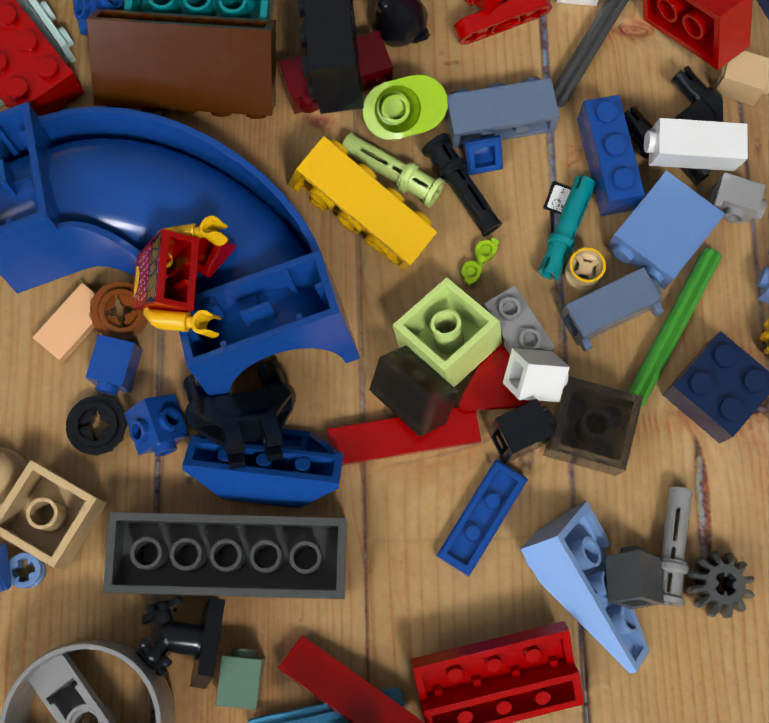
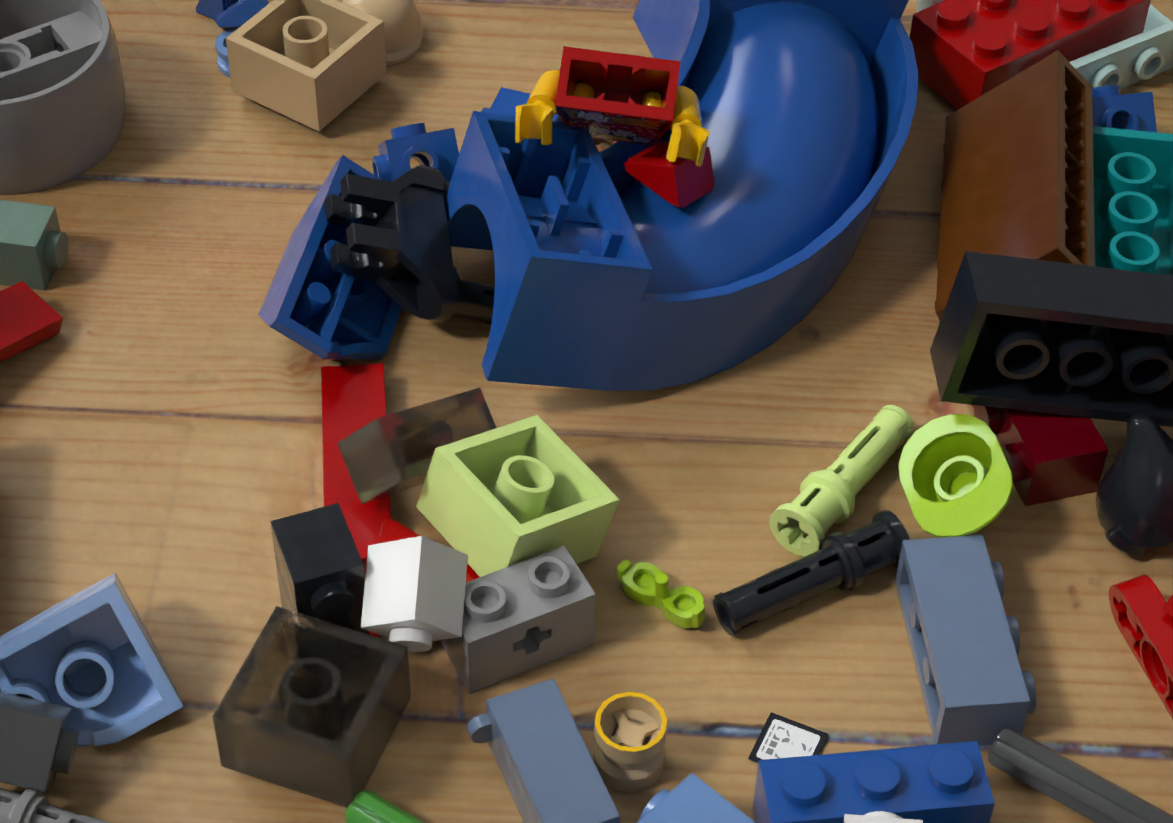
camera: 95 degrees right, 30 degrees down
(84, 414) = (423, 105): black gear -> none
(184, 639) = (85, 187): black piece -> none
(226, 555) = (197, 236): dark grey brick -> none
(362, 203) = (770, 411): yellow wedge -> none
(482, 518) = (191, 561): blue tile -> none
(483, 155) = (876, 615): blue slope -> none
(562, 239) = (699, 719): teal pin -> none

